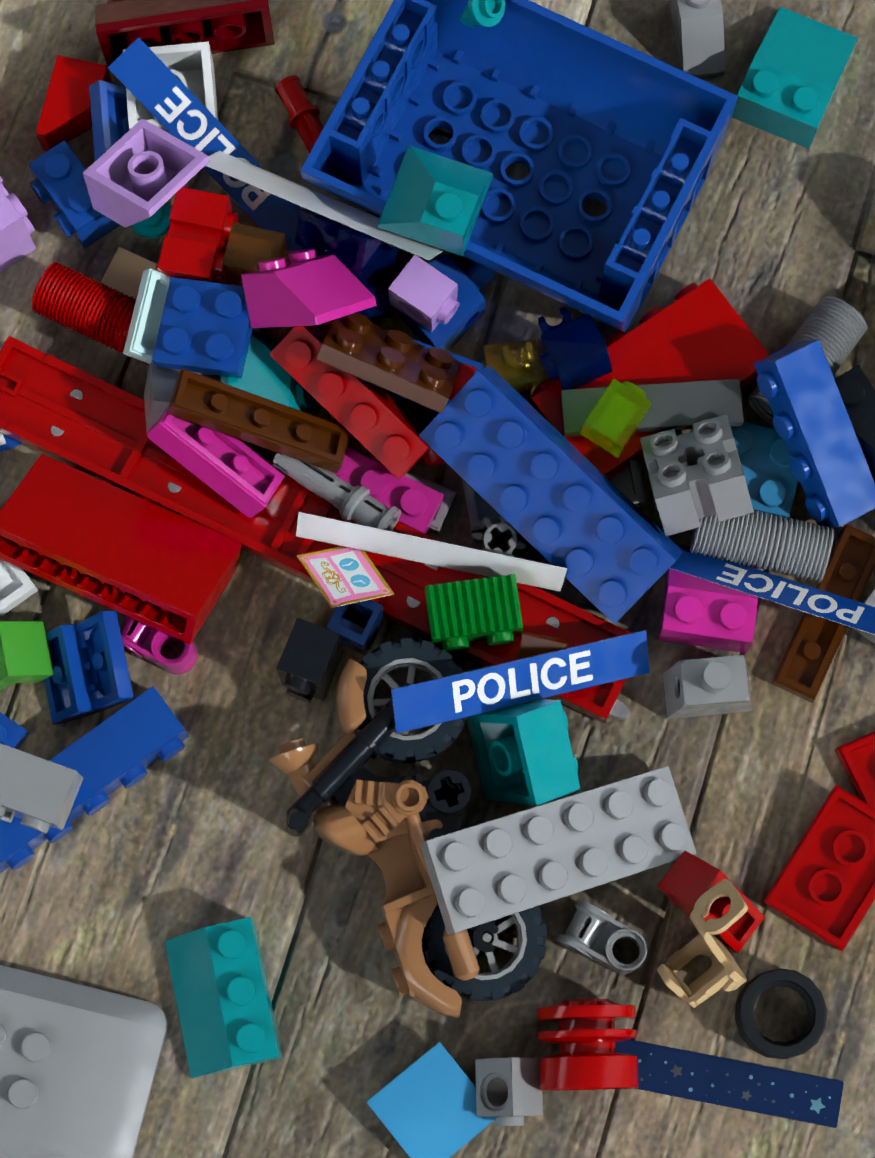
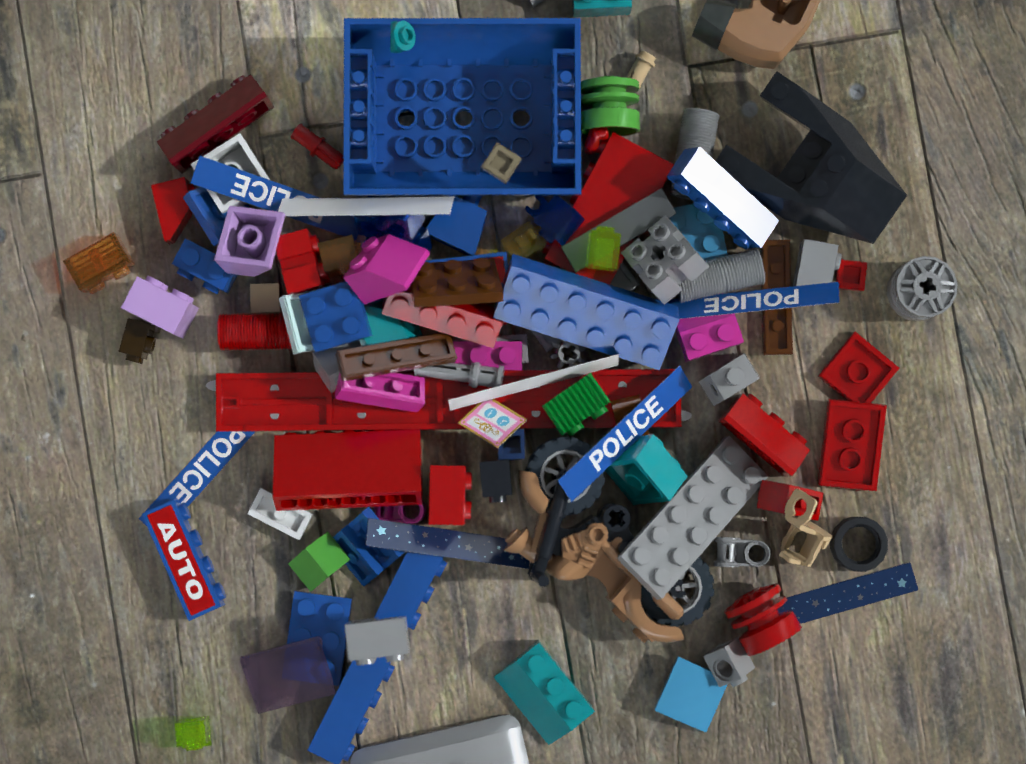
camera: 30 degrees left, 10 degrees up
(190, 712) = (441, 543): none -> dark blue sticker
(234, 649) = (448, 495): none -> red brick
(424, 294) = (452, 229): lavender brick -> none
(435, 200) = (433, 173): teal slope -> none
(534, 229) = (501, 163): none -> dark tan tile
(683, 270) = (592, 141): none -> red arm
(719, 788) = (765, 434): none -> red slope
(721, 241) = (609, 104): none -> bright green wheel
(788, 220) = (641, 66): none -> tan pin

